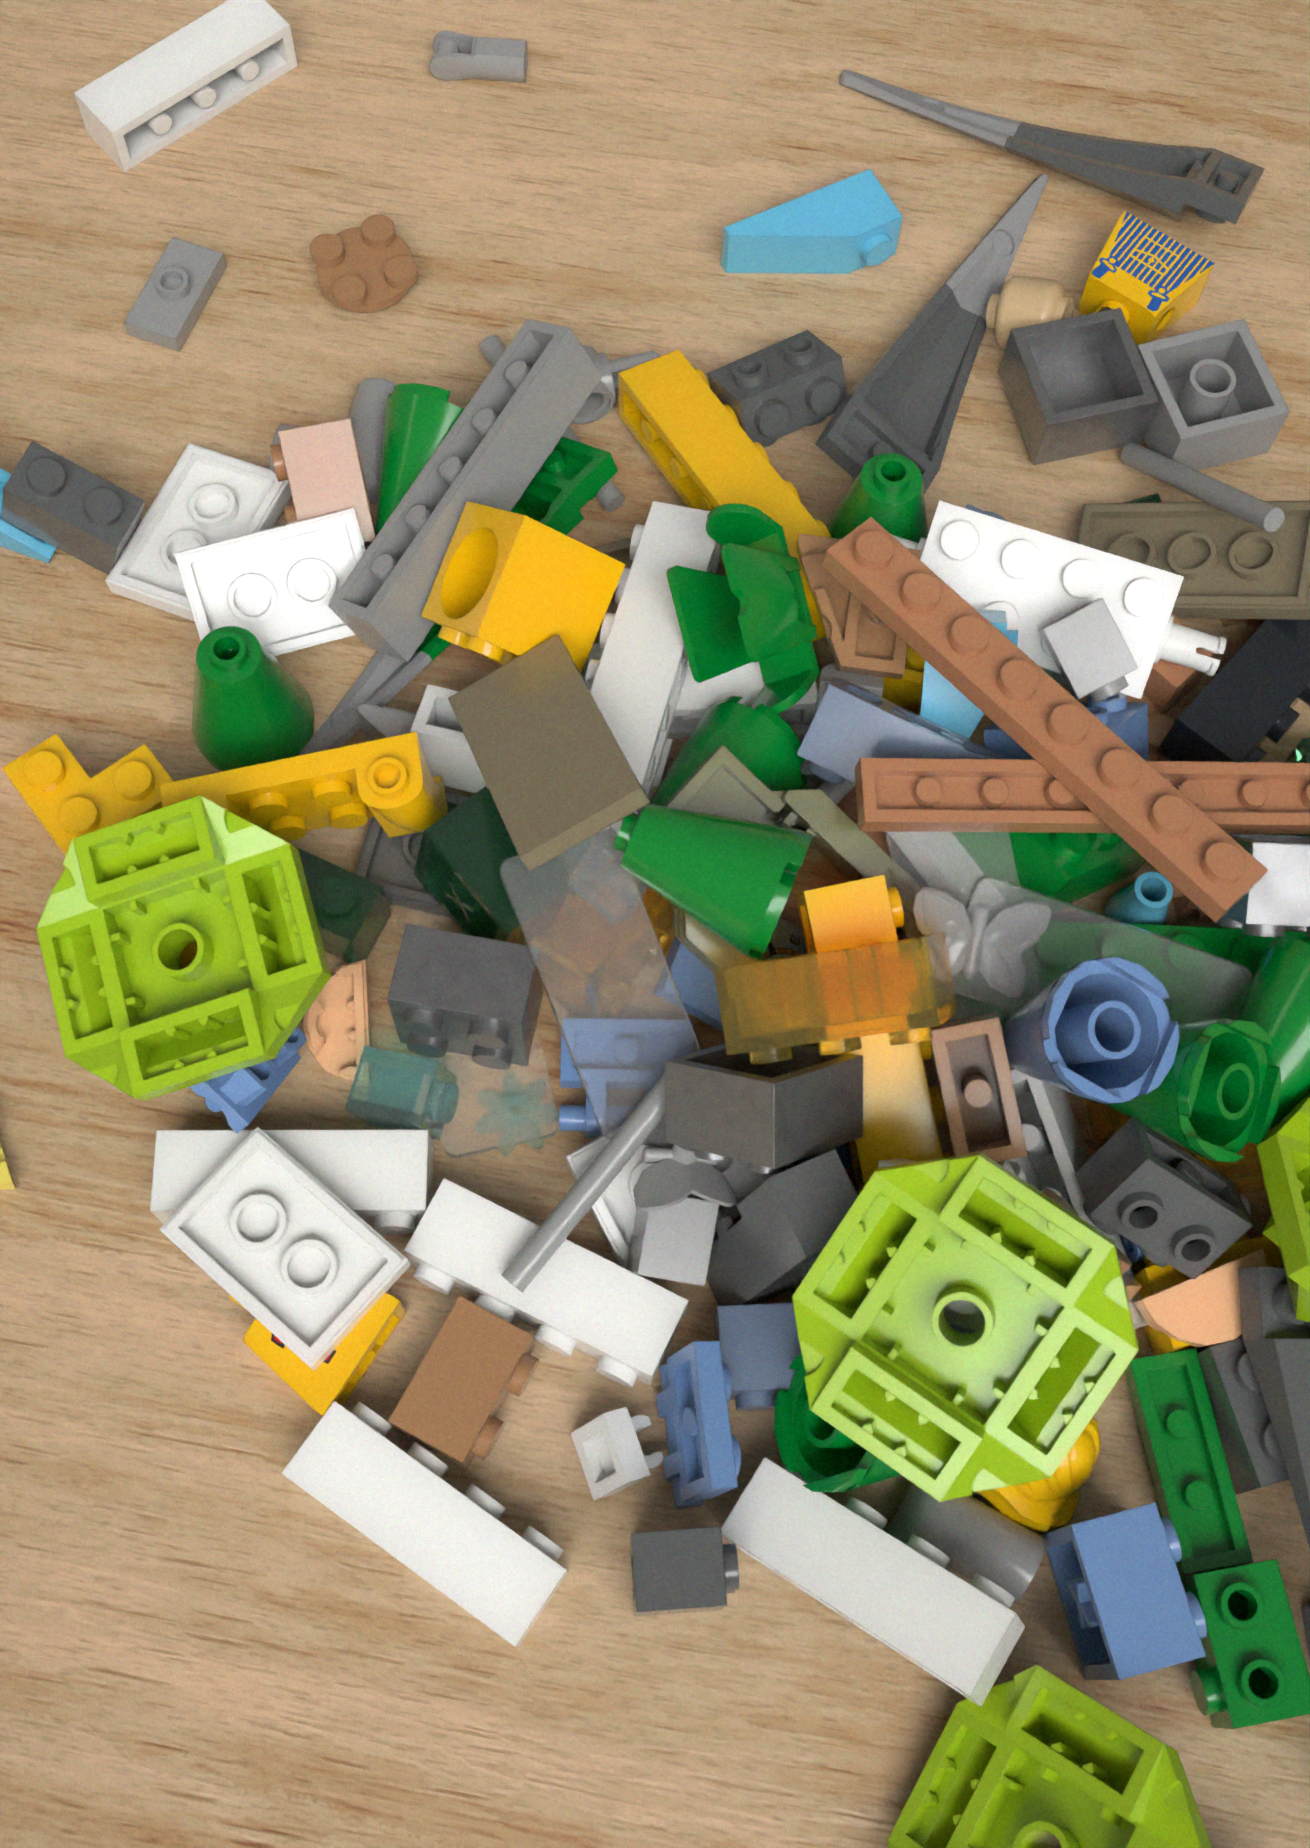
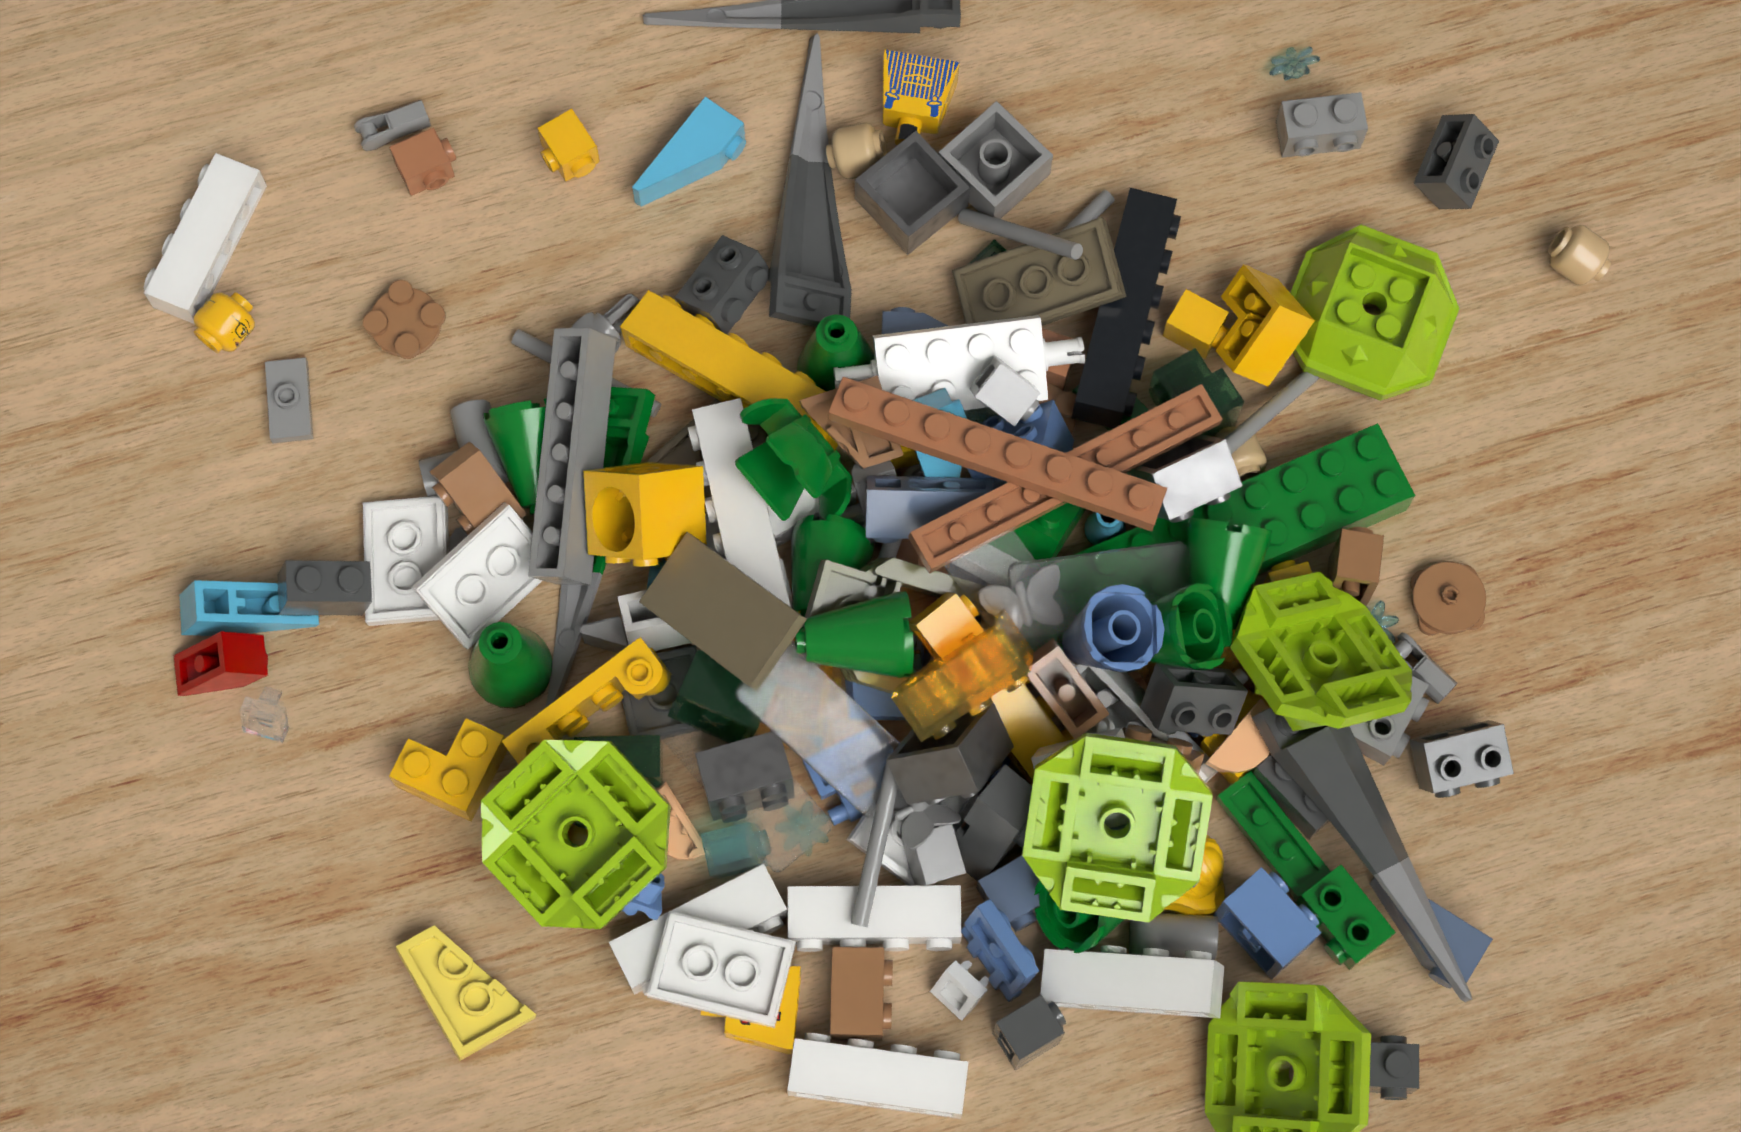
camera: 25 degrees left, 5 degrees up
(152, 173) = (224, 321): none -> yellow head
(490, 105) = (424, 161): none -> nougat brick
(672, 161) = (568, 146): none -> yellow brick

